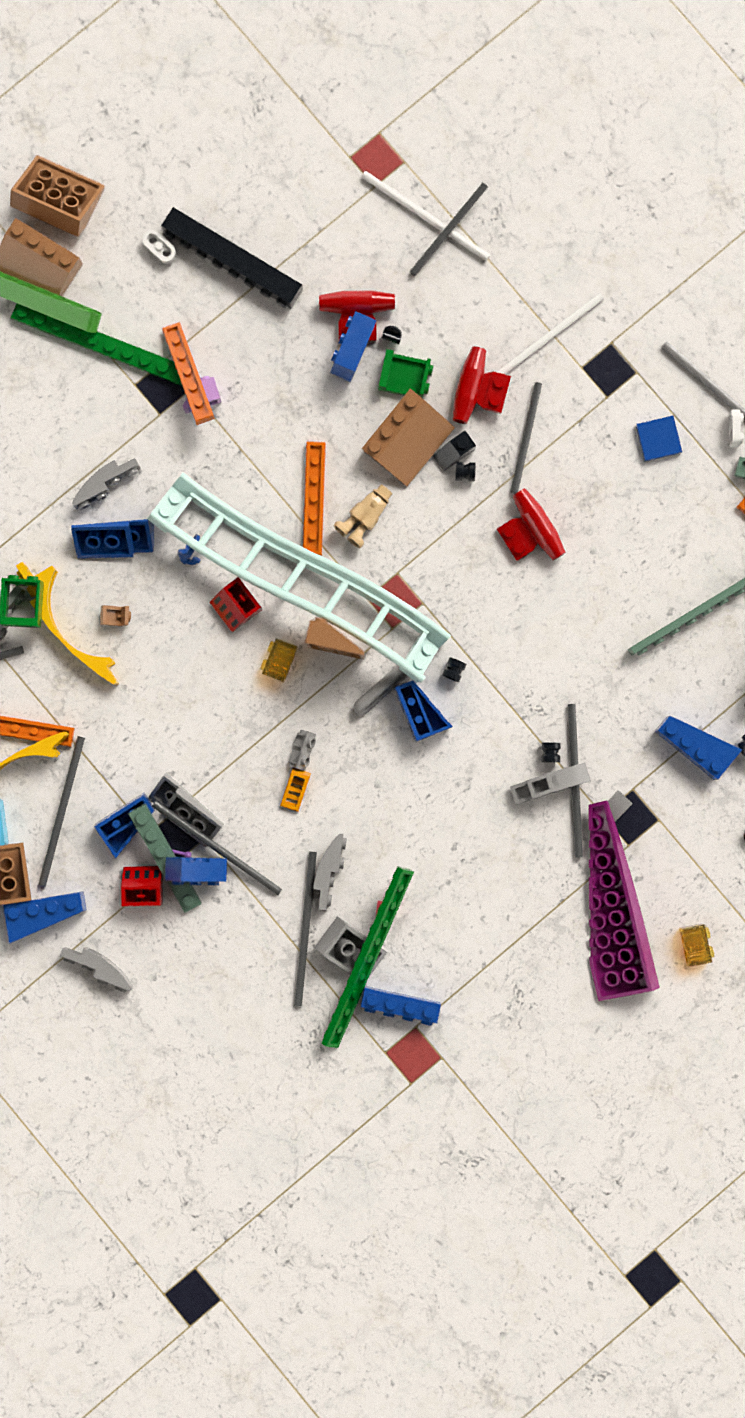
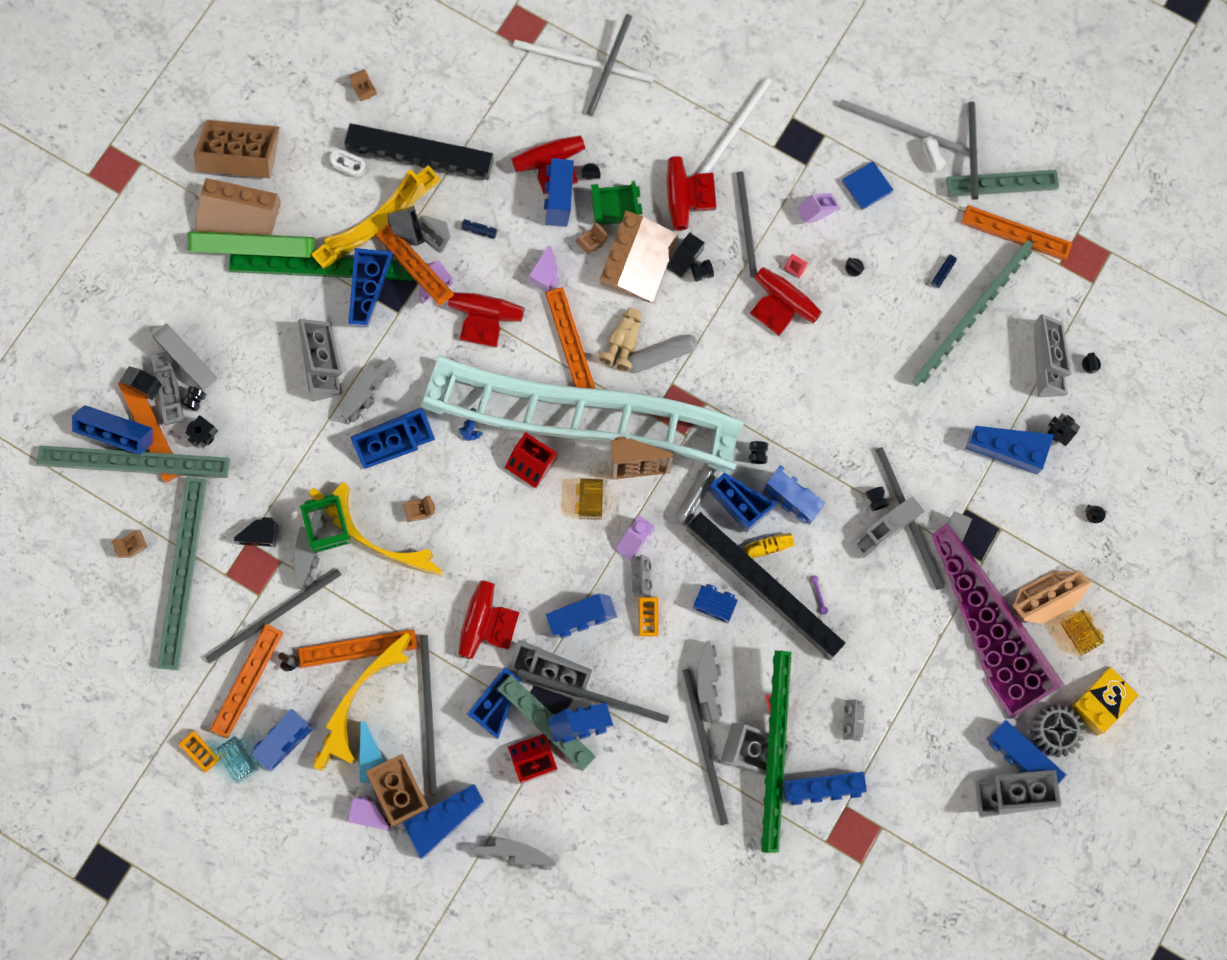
camera: 20 degrees left, 10 degrees down
(69, 436) = (320, 359): none -> light grey slope
(137, 376) = (368, 278): none -> blue wedge
(142, 744) = (486, 623): none -> red plate
(194, 305) = (407, 193): none -> yellow slope
(194, 330) = (406, 225): none -> black slope
(199, 170) = (362, 85): none -> medium nougat bracket
(220, 344) = (435, 232): none -> light grey slope
(232, 769) = (581, 615): none -> blue wedge
(239, 446) = (484, 316): none -> red plate
(264, 356) = (478, 228): none -> dark blue axle
(308, 712) = (635, 537): none -> lavender slope
(313, 421) = (545, 271): none -> lavender slope
(361, 799) = (715, 603): none -> blue brick
(369, 404) = (592, 239): none -> medium nougat bracket
(398, 540) = (662, 353): none -> light grey piece
(414, 799) = (765, 586): none -> black brick
(432, 762) = (769, 545): none -> yellow hinge
(453, 943) = (851, 729): none -> light grey hinge
(462, 840) = (824, 610): none -> medium lavender hinge
(471, 724) = (793, 496): none -> wedge
(558, 496) = (796, 265): none -> coral slope
(575, 1074) = (1017, 793): none -> light grey slope
(597, 1041) = (1020, 751): none -> blue brick
(601, 445) = (817, 207): none -> lavender slope
(614, 517) = (854, 267): none -> black plate
(638, 1019) = (1057, 738): none -> light grey gear
(678, 901) = (1051, 595): none -> light nougat wedge
(692, 1015) = (1104, 701): none -> yellow slope
(700, 550) = (944, 271): none -> dark blue axle

